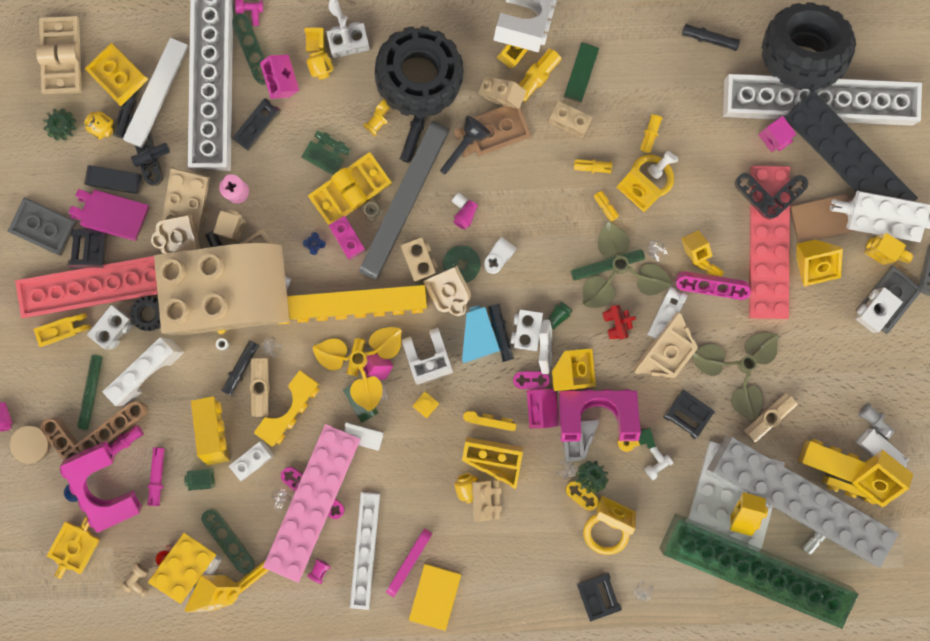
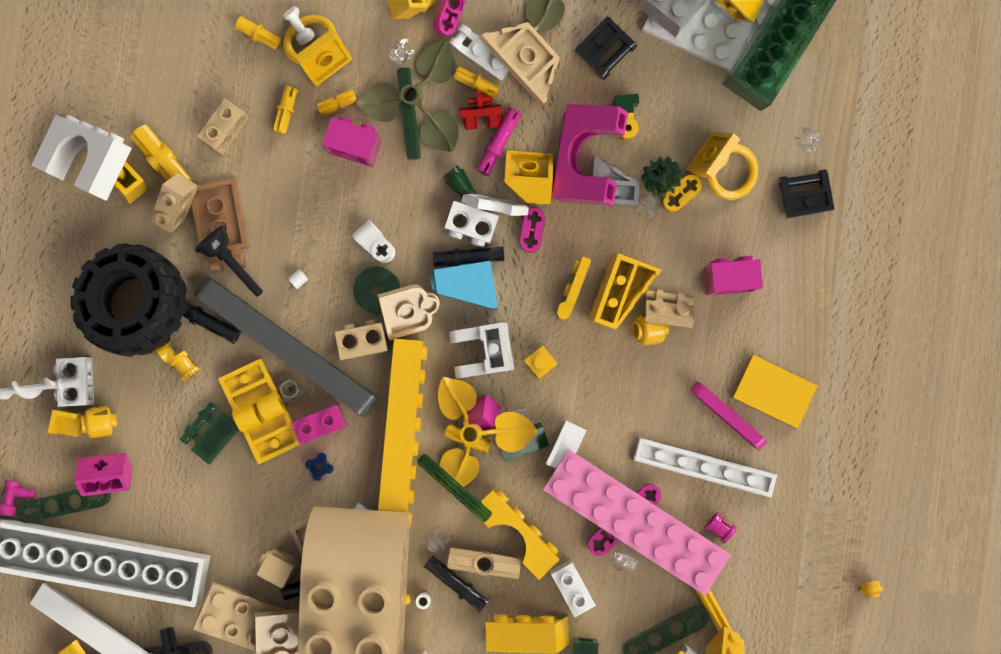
camera: 85 degrees left, 0 degrees up
(234, 189) = (233, 554): bright pink piece -> none
(256, 124) = (158, 514): black plate -> none
(314, 353) = (454, 488): none -> clear green axle
(465, 215) = (317, 274): dark pink cone -> none
(520, 548) = (733, 277): none -> dark pink brick
(542, 408) = (569, 222): dark pink panel -> none
(575, 224) = (352, 141): none -> dark pink brick
(581, 72) = (168, 104): dark green tile -> none
(589, 337) = (494, 149): none -> dark pink pin
(642, 314) = (476, 82): none -> yellow axle
(663, 461) = (657, 88): white piece -> none

